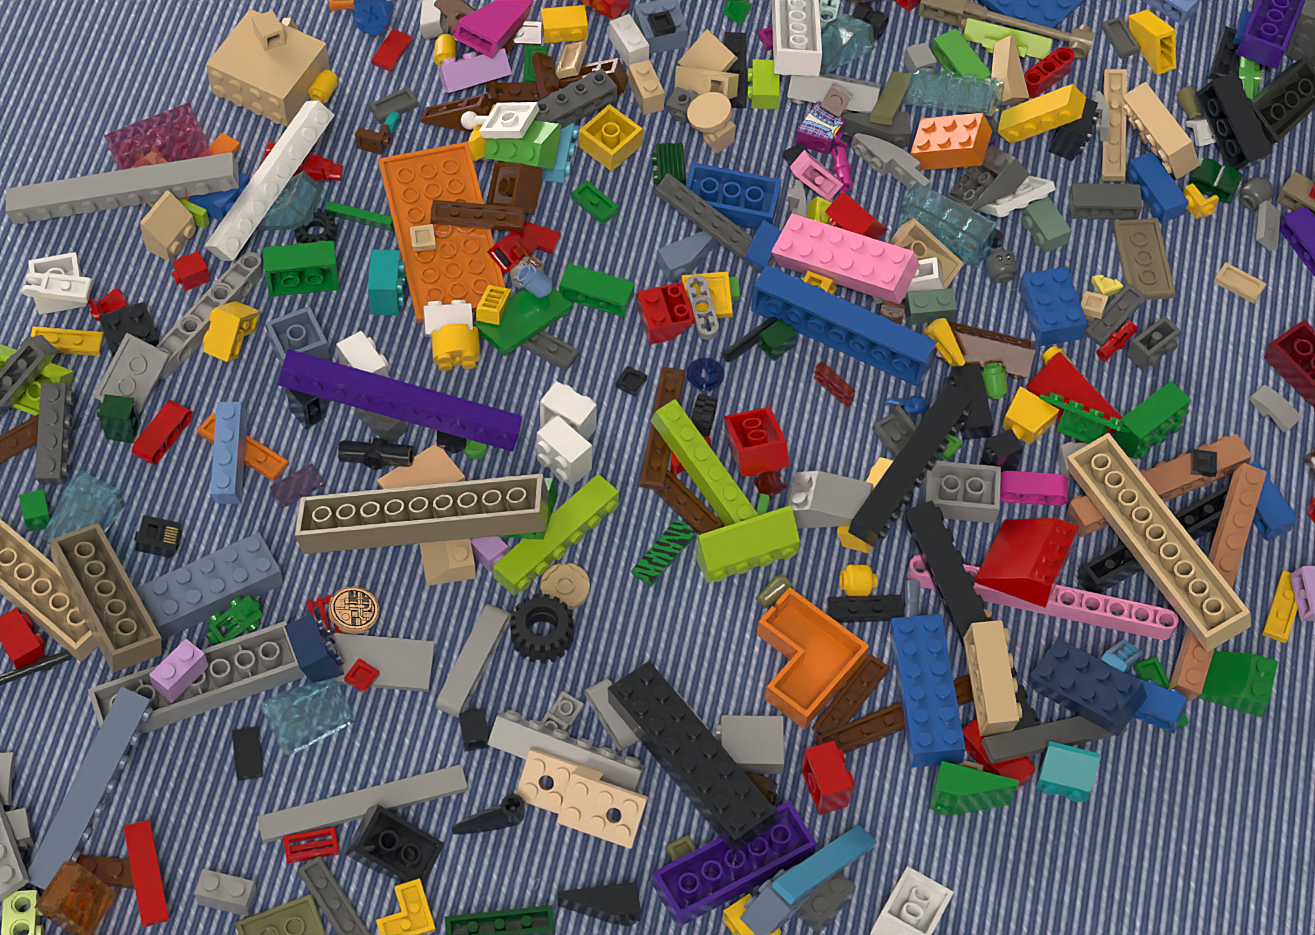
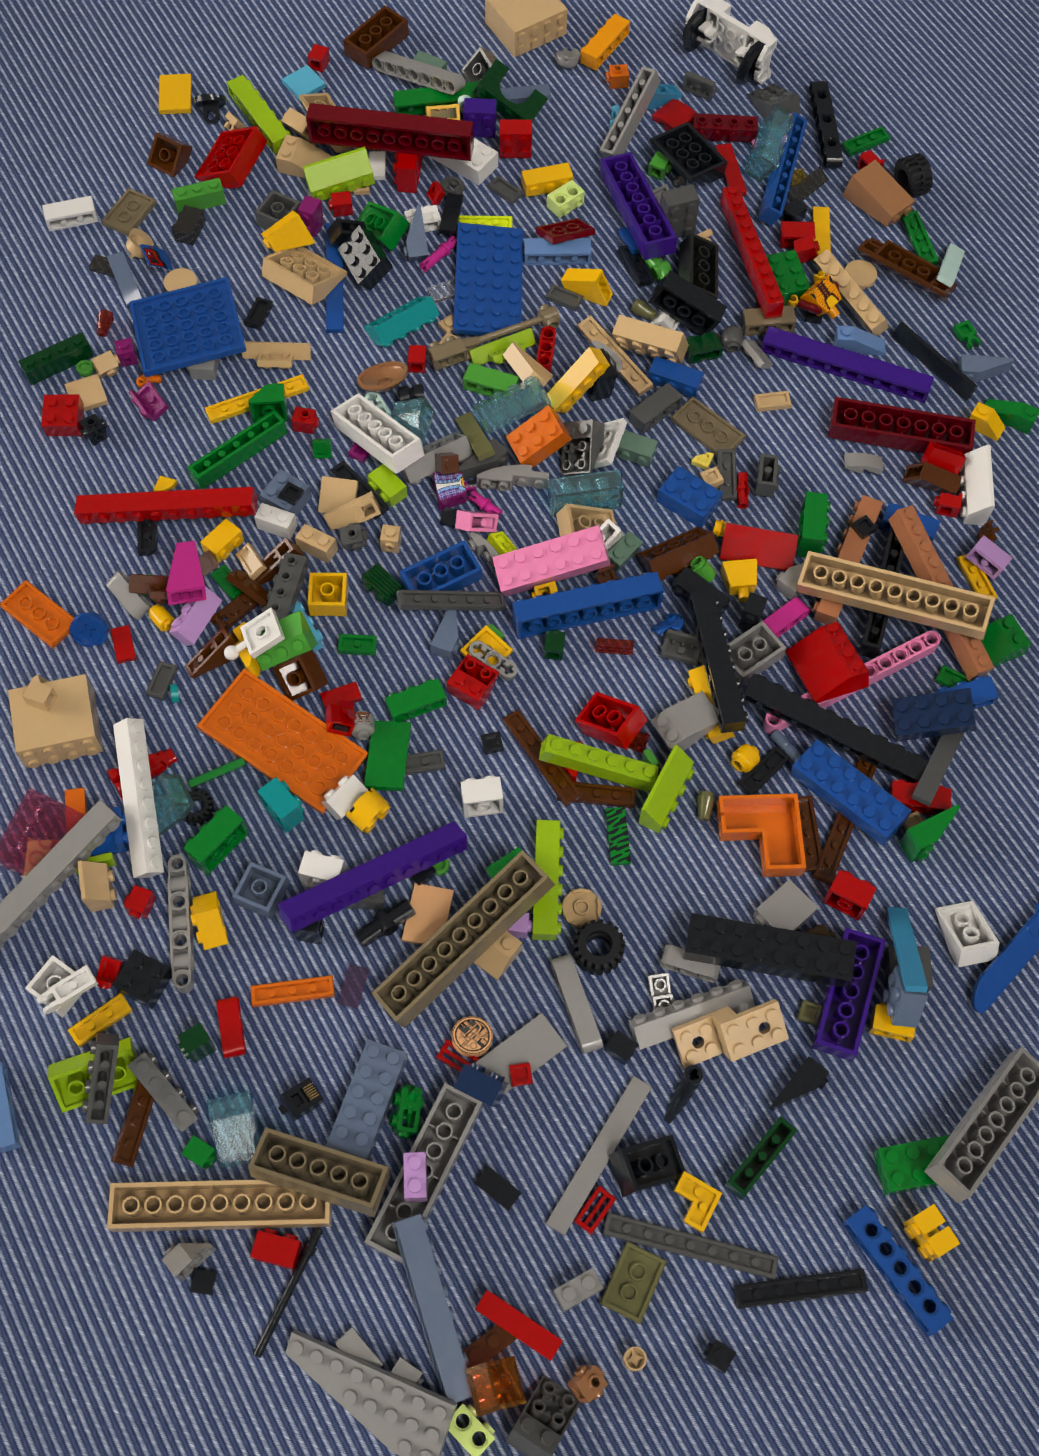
camera: 40 degrees left, 5 degrees up
(133, 371) = (174, 1005): light grey tile -> none
(229, 453) = (293, 1003): medium blue brick -> none
(307, 714) = (513, 1129): clear light blue slope -> none
(323, 86) = (103, 704): yellow brick -> none
(373, 141) = (173, 716): reddish brown bracket -> none
(422, 238) = (278, 755): tan plate -> none
(477, 215) = (298, 712): reddish brown tile -> none
(492, 309) = (369, 773): yellow slope -> none
(534, 281) = (378, 727): medium blue brick -> none
(564, 451) = (502, 823): white brick -> none
(704, 413) = (561, 726): black tyre -> none
(709, 112) = (378, 529): tan tile -> none
(711, 367) = (531, 694): clear blue gear -> none
(747, 341) = (537, 657): black axle -> none
(762, 245) = (490, 591): blue tile -> none
(850, 216) = (530, 531): red brick -> none
(918, 57) = (465, 399): light grey brick -> none
(946, 344) = (654, 563): yellow slope -> none
(992, 678) = (888, 755): tan brick -> none
(1001, 265) = (636, 494): dark grey head -> none
(1067, 771) = (968, 775): teal slope -> none
(1081, 423) = (780, 556): green bracket -> none
(1122, 655) = (933, 680): dark azure tile -> none
(1197, 203) = (708, 368): yellow bracket -> none

